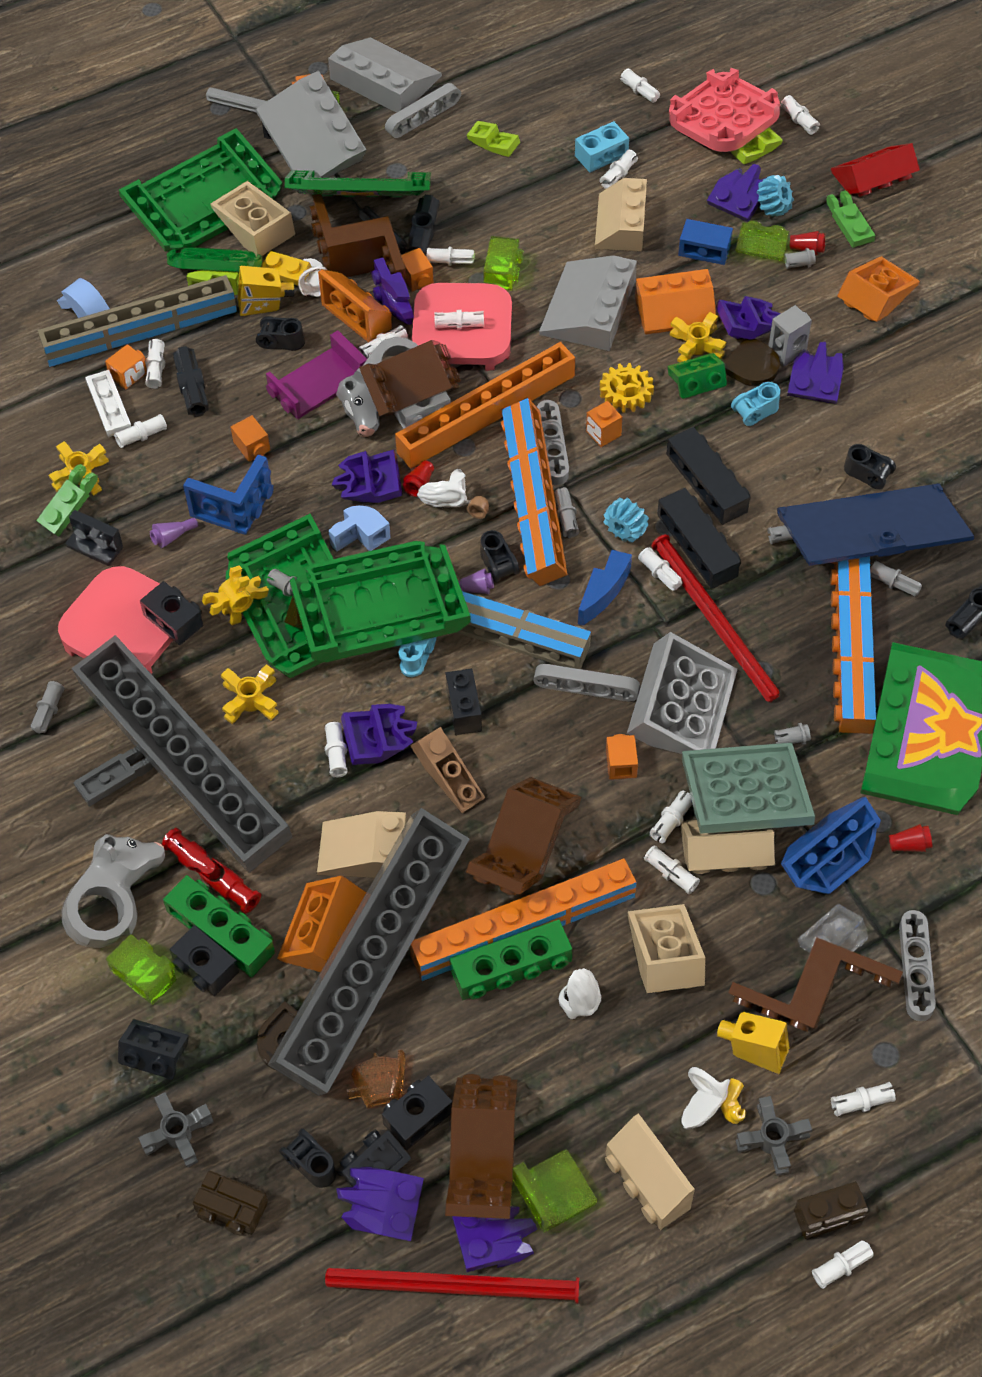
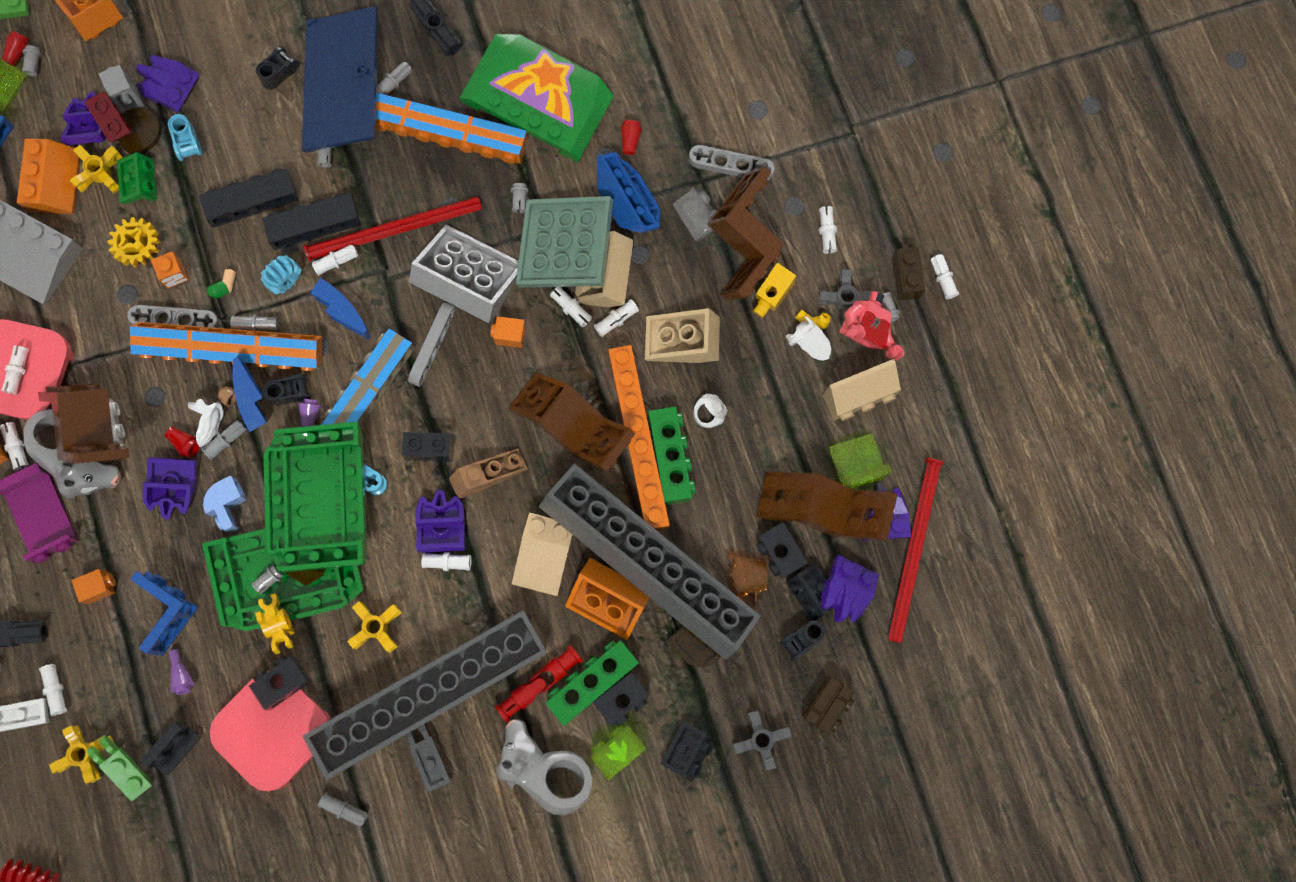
camera: 85 degrees left, 20 degrees up
(429, 513) = (224, 439): none -> light grey axle
(481, 517) = (247, 395): none -> blue slope
(484, 405) = (120, 366): orange brick -> none
(601, 477) = (223, 287): none -> arm
(739, 1164) = (870, 326): none -> coral torso
(752, 329) = (108, 117): none -> dark red bracket
(776, 1195) = (889, 305): none -> light grey pin

